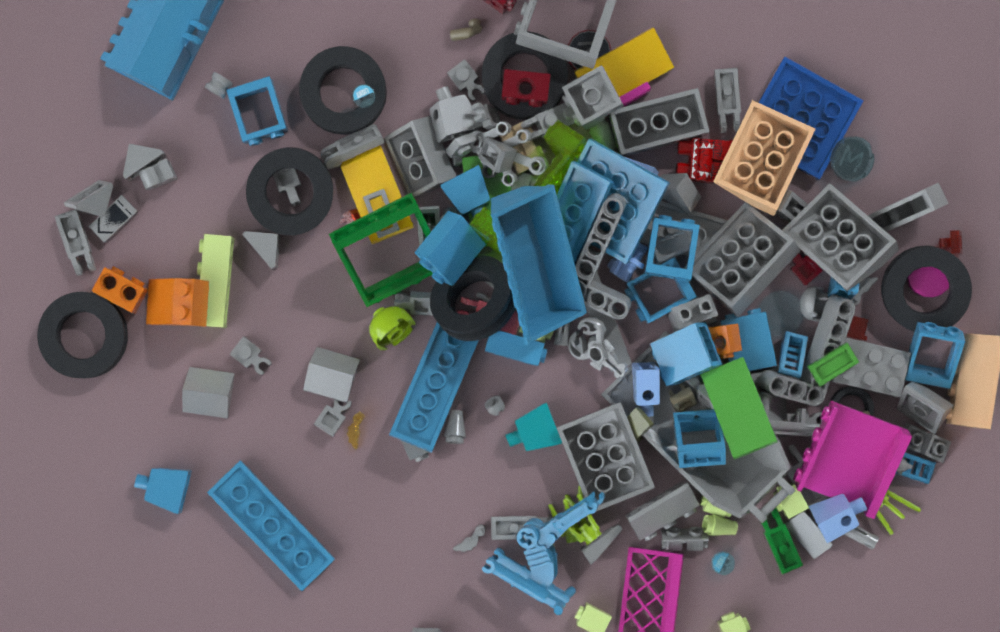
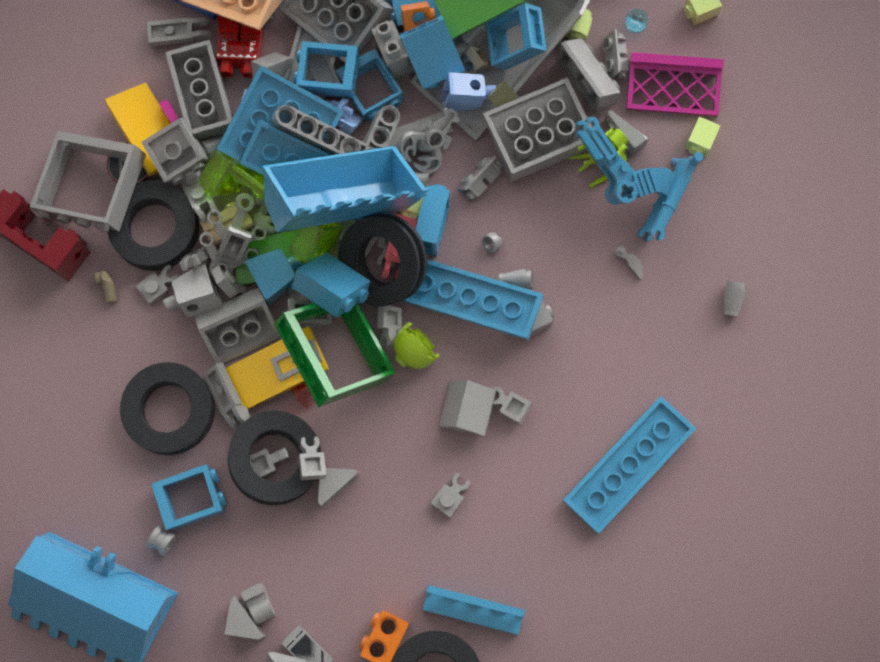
camera: 85 degrees left, 10 degrees down
(144, 372) = (473, 609): none -> dark azure fence
(165, 487) = (596, 579): dark azure torso -> none
(177, 302) = (396, 573): orange slope -> none
(207, 392) = (491, 538): light grey slope -> none
(217, 269) = (371, 535): yellowish green brick -> none
(280, 226) = (310, 462): none -> light grey plate
(354, 431) = (525, 383): clear yellow piece -> none
(363, 95) = (172, 382): tile -> none
(508, 526) = (614, 219): light grey hinge -> none
(514, 79) = (159, 205): dark red brick -> none
(535, 430) = (514, 200): teal torso -> none
(556, 389) = (485, 170): none -> light grey hinge
(717, 525) = (600, 24): yellowish green cone -> none

